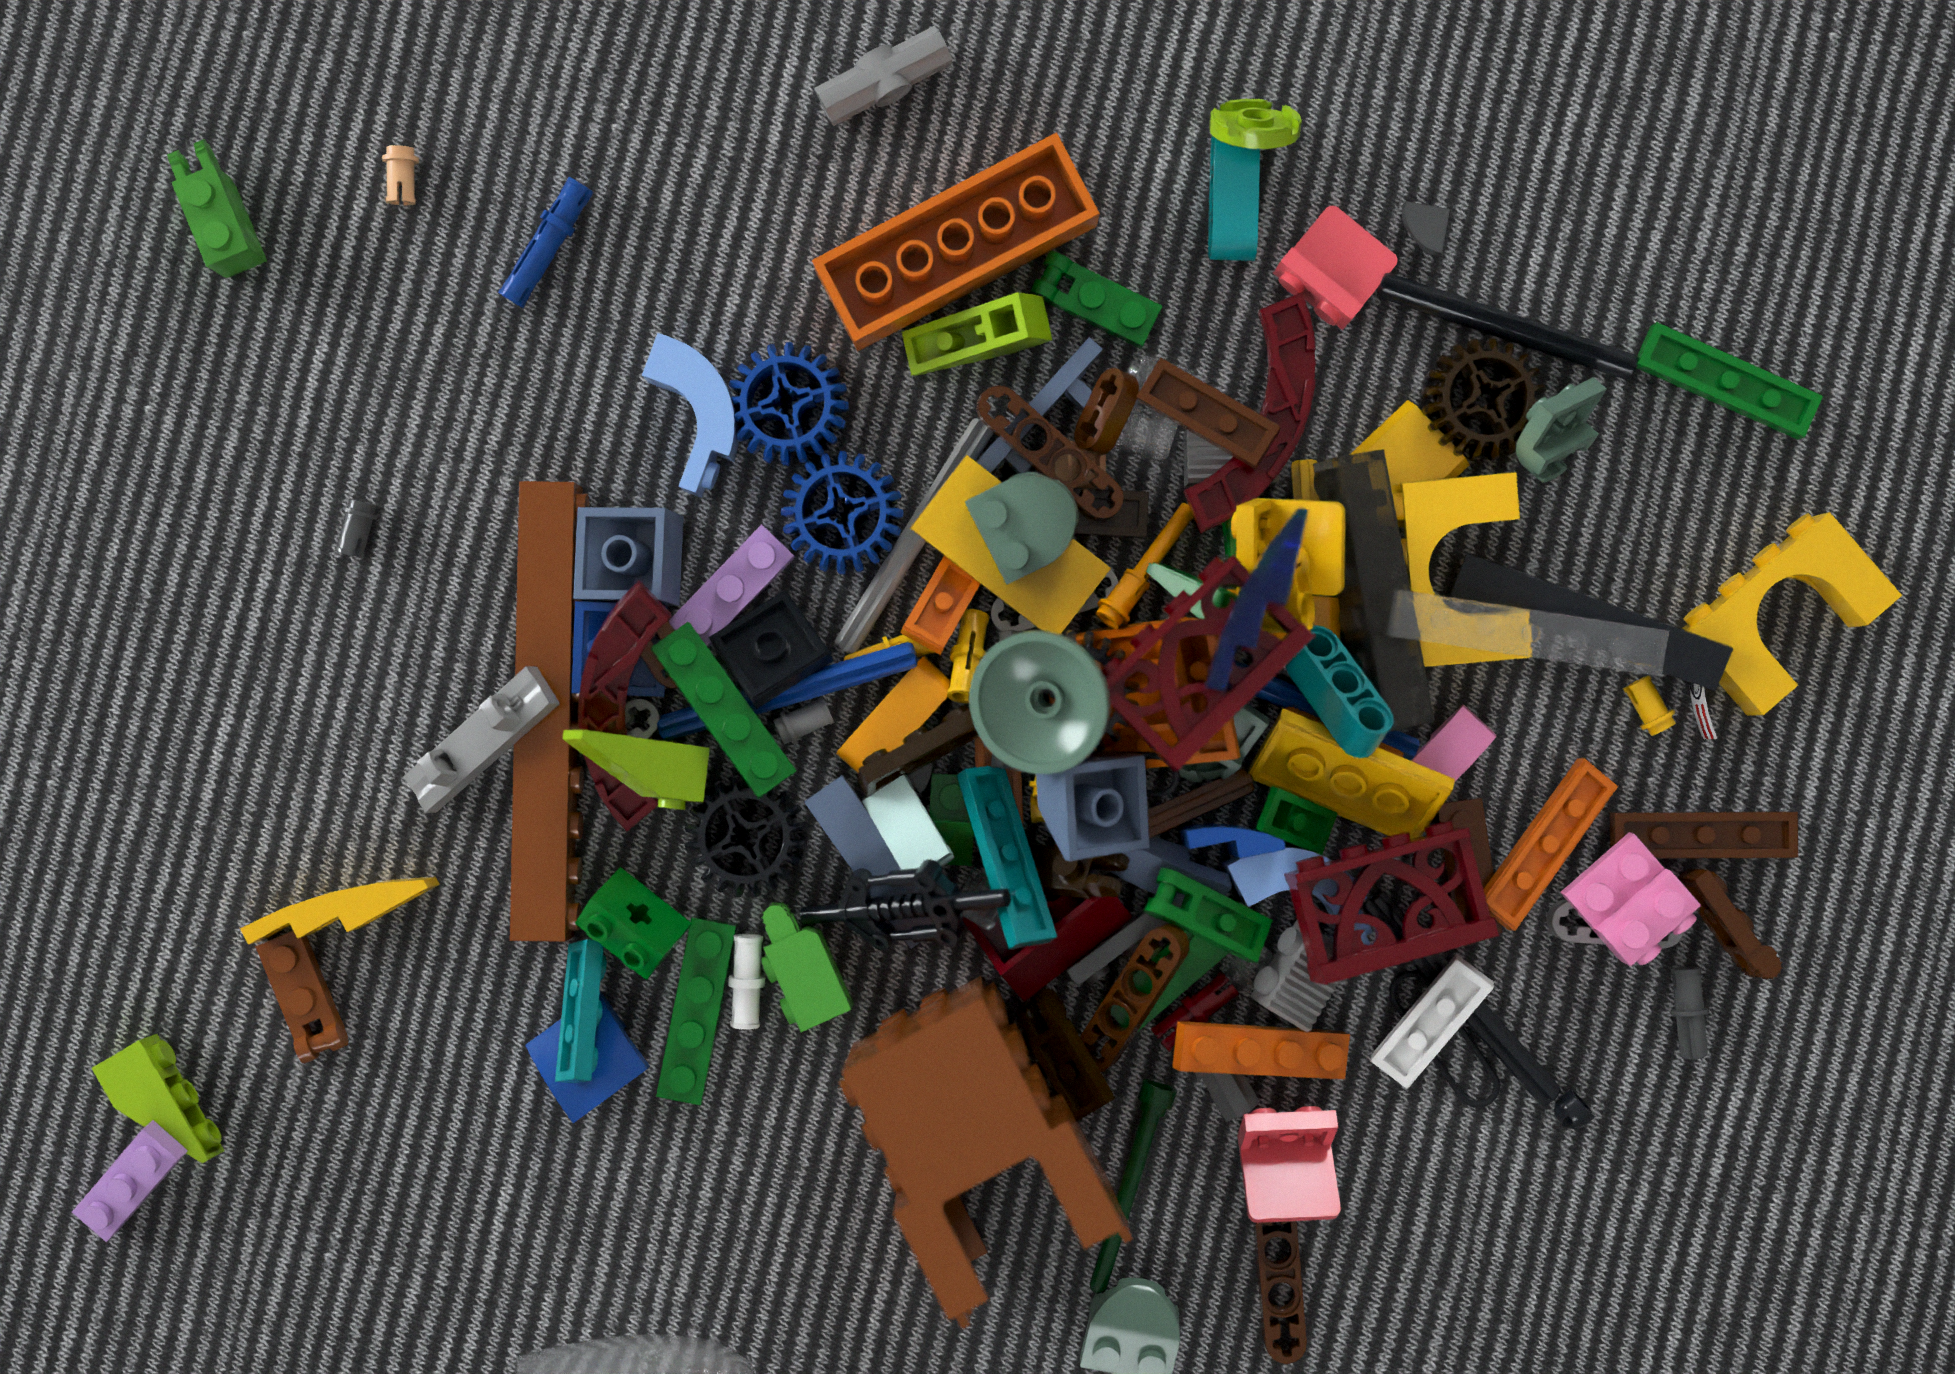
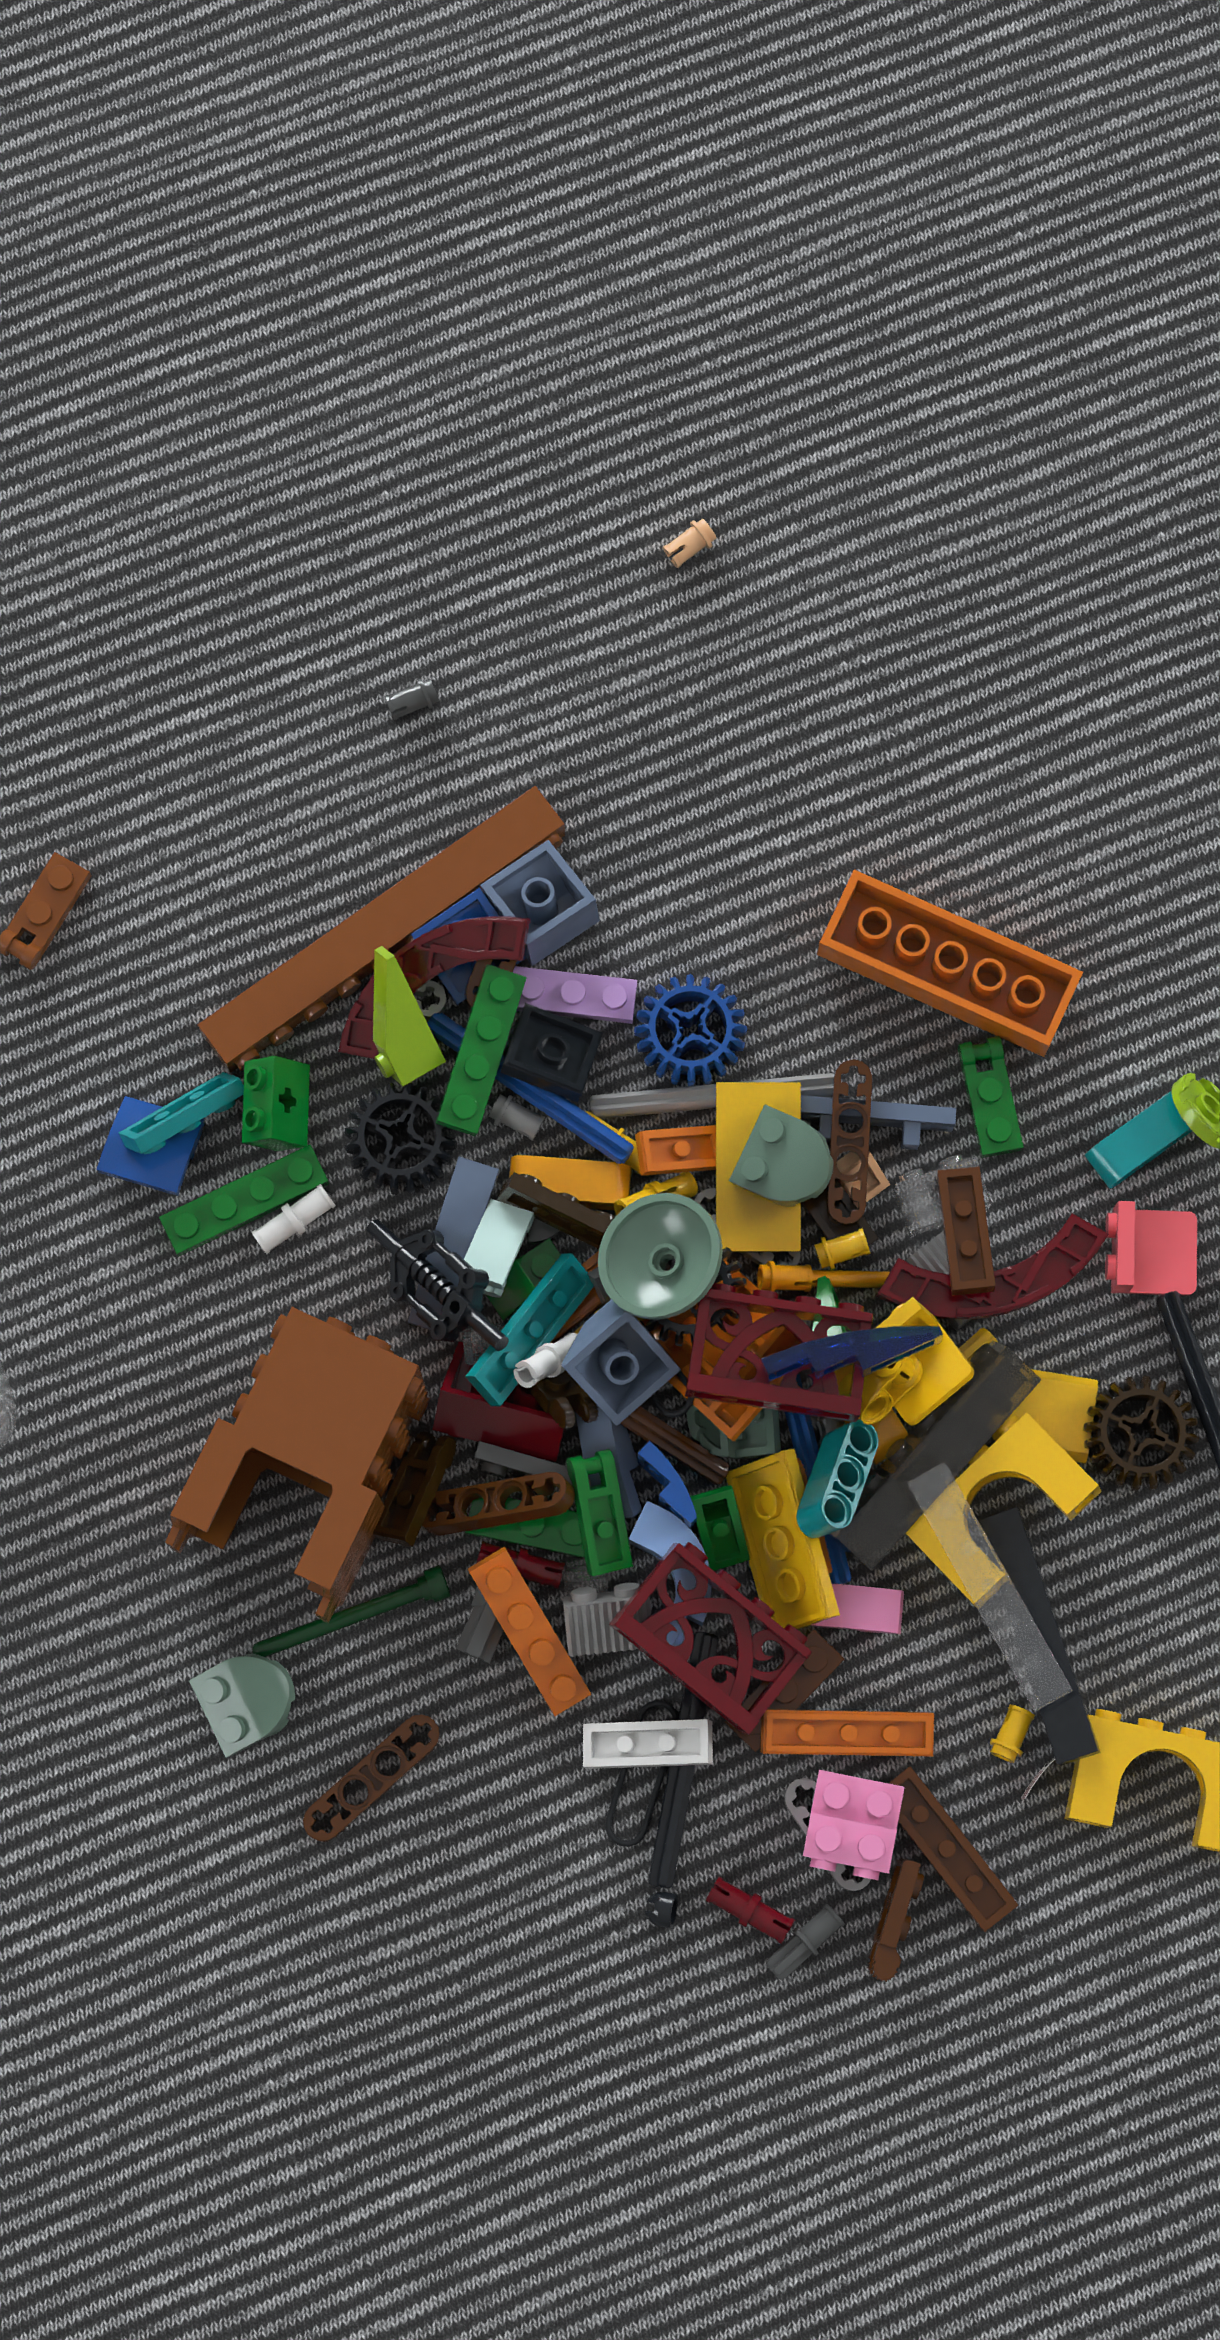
camera: 50 degrees right, 10 degrees down
(215, 213) = (561, 439): bright green hinge -> none
(352, 906) = (138, 899): yellow slope -> none
(481, 739) = (327, 896): light grey hinge -> none
(555, 227) = (719, 678): blue pin -> none
(692, 376) = (691, 889): light blue arch -> none
(804, 970) = (334, 1253): bright green hinge -> none
(808, 399) = (724, 921): blue gear -> none
(883, 75) = (1030, 823): light grey piece -> none
(978, 334) = (897, 1030): lime slope -> none
(1047, 865) = (544, 1362): none -> white pin
(1106, 411) = (911, 1161): reddish brown beam -> none
(1136, 530) = (841, 1248): none -> yellow pin
(1289, 1164) = (460, 1716): bracket -> none
(1558, 428) = (1159, 1501): sand green slope -> none
(1630, 1037) = (750, 1910): none -> dark red pin

